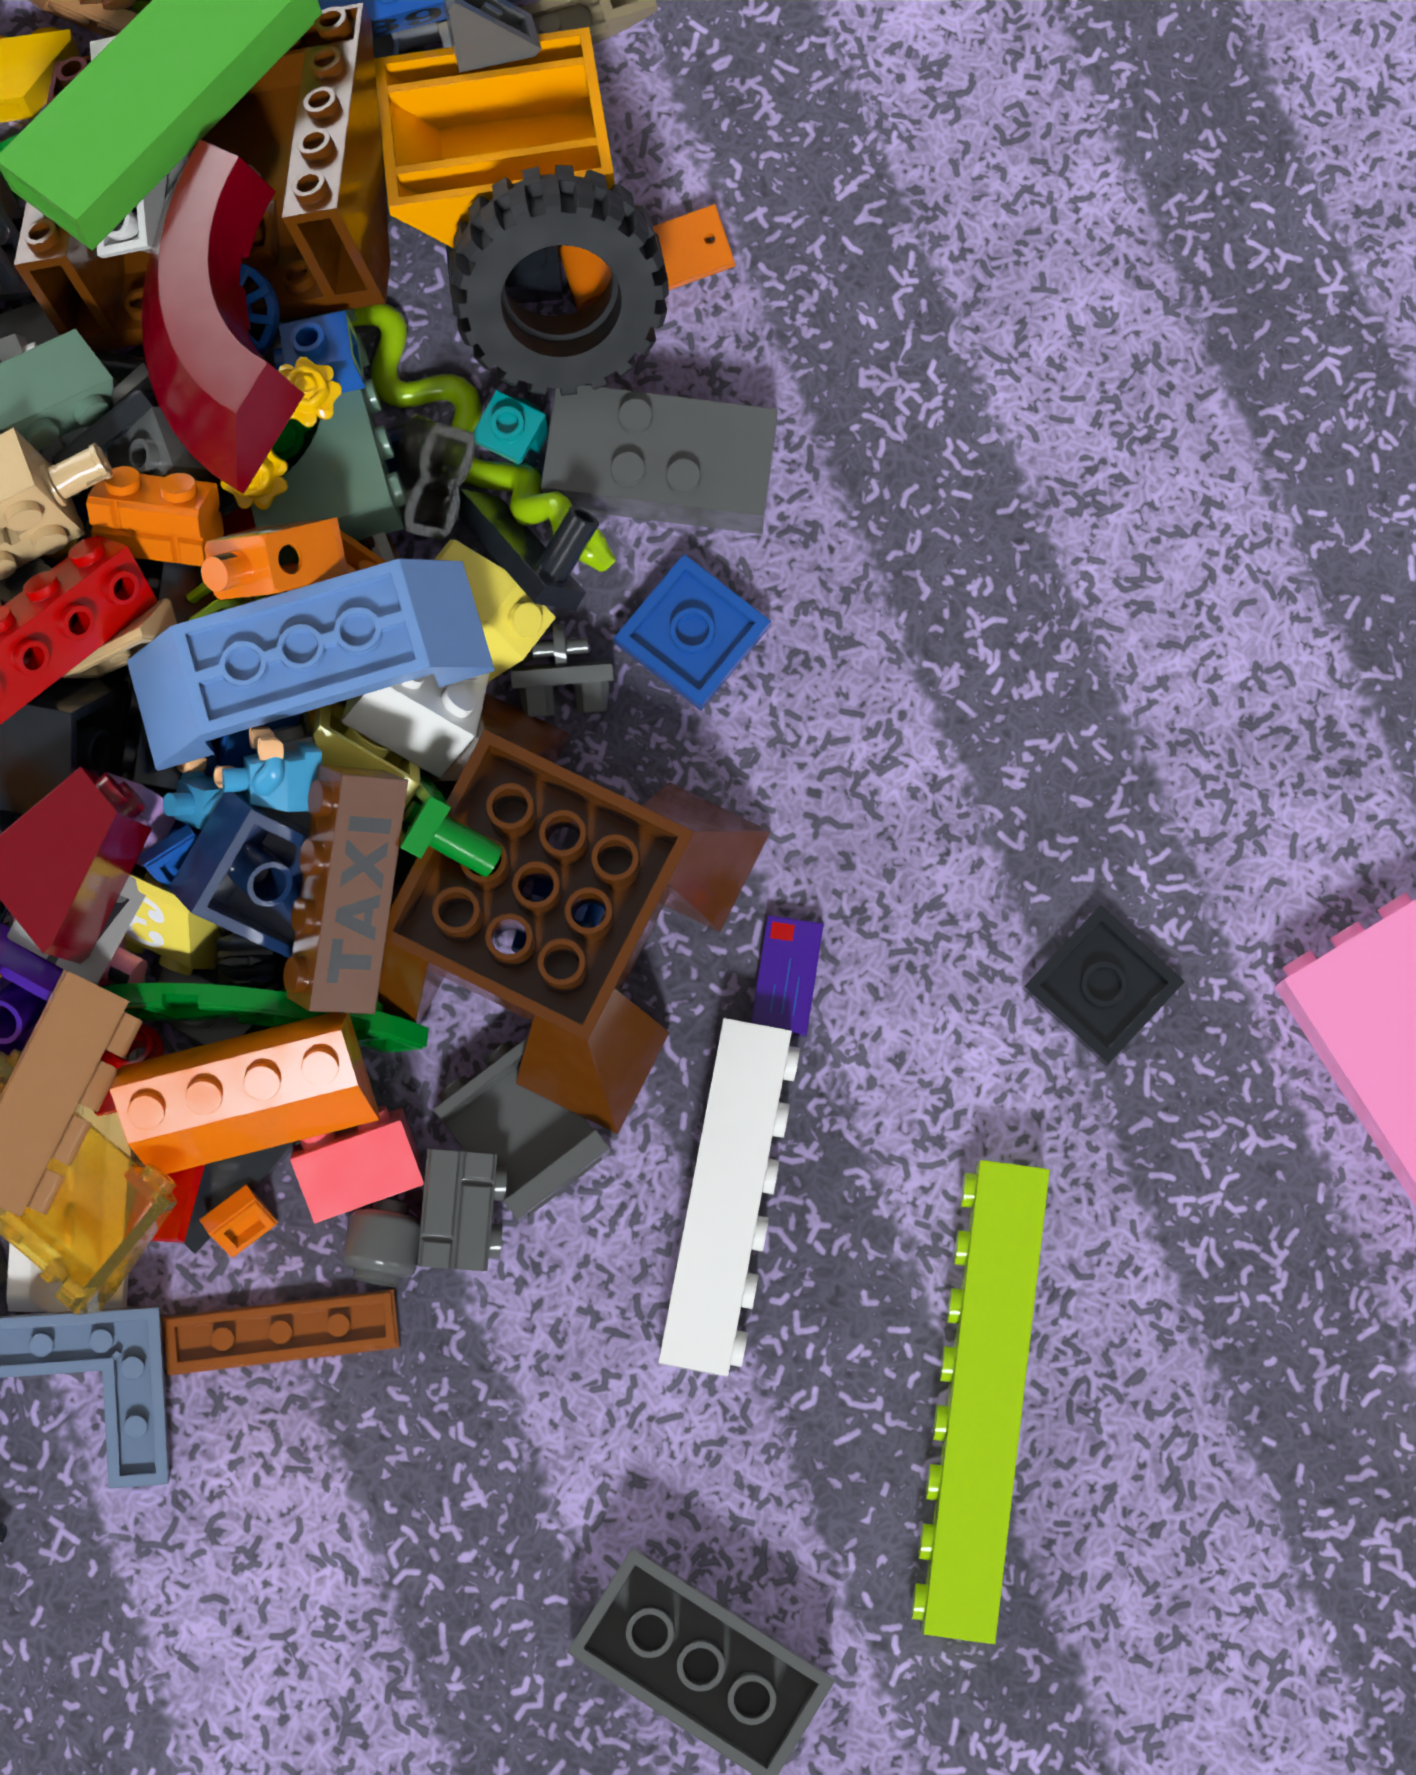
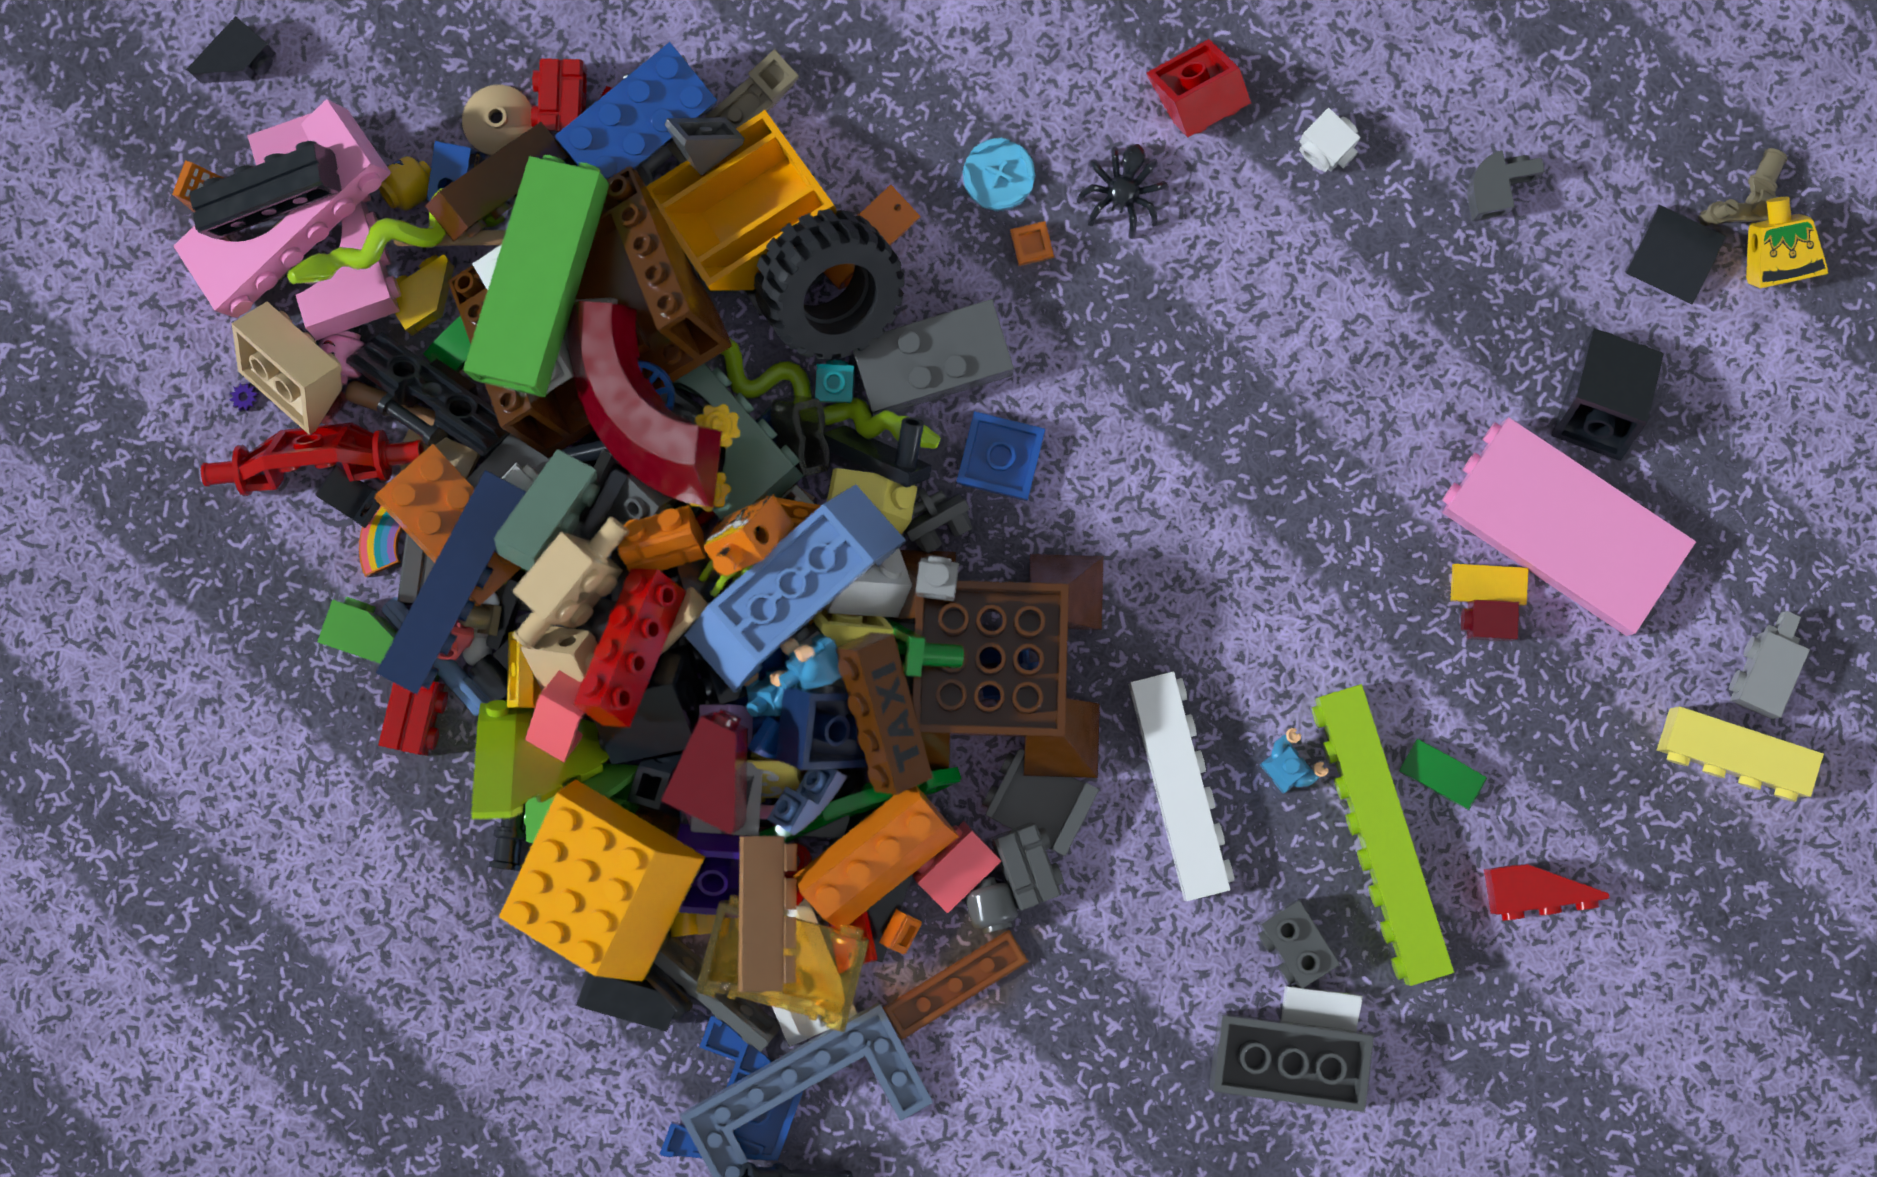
camera: 20 degrees left, 5 degrees up
(167, 973) = (800, 807): none -> medium blue slope
(324, 341) = (705, 389): blue brick -> none
(509, 737) = (937, 578): none -> light grey brick
(782, 1608) = (1321, 1008): none -> white slope
(787, 974) = (1153, 638): dark purple tile -> none
(789, 1500) = (1297, 944): none -> dark grey brick
(869, 258) = (998, 174): none -> medium azure tile
(871, 368) = (1031, 243): none -> orange tile
(891, 1241) = (1287, 768): none -> dark azure piece
(1030, 350) = (1124, 189): none -> black animal
(1103, 985) = (1341, 558): black tile -> none
(1109, 1354) = (1443, 774): none -> green slope
(1161, 1573) = (1526, 888): none -> red slope
(1198, 262) = (1199, 87): none -> red slope
(1276, 1166) = (1491, 620): none -> dark red brick
(1297, 1117) = (1489, 583): none -> yellow tile
(1345, 410) = (1329, 142): none -> white brick

